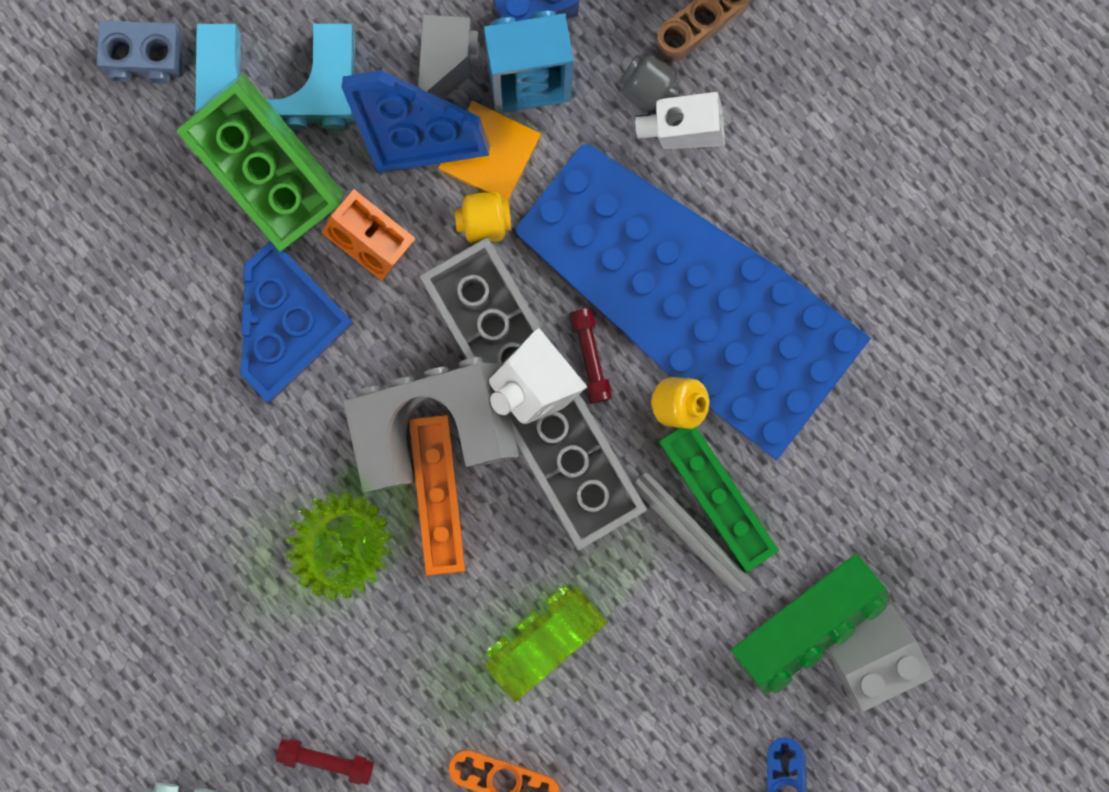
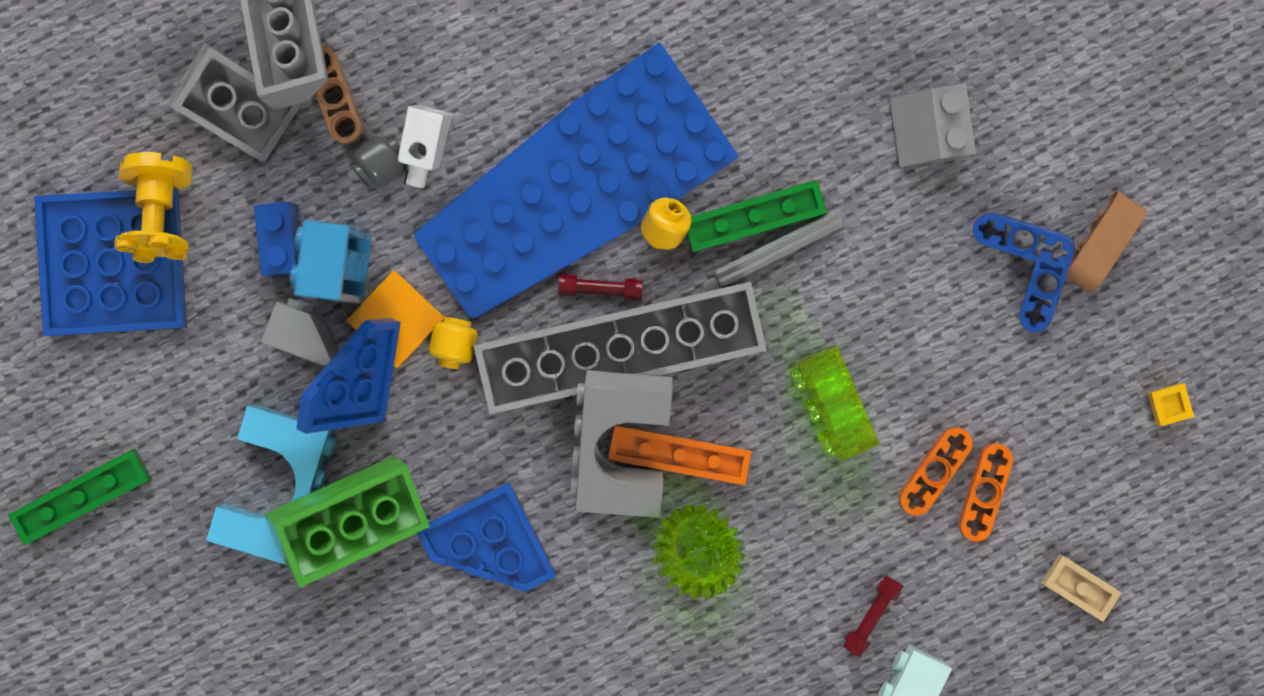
camera: 70 degrees left, 5 degrees up
(142, 40) = (206, 591): sand blue brick -> none
(367, 235) = (438, 447): orange brick -> none
(534, 381) = (613, 345): white torso -> none
(811, 625) = (888, 172): green brick -> none

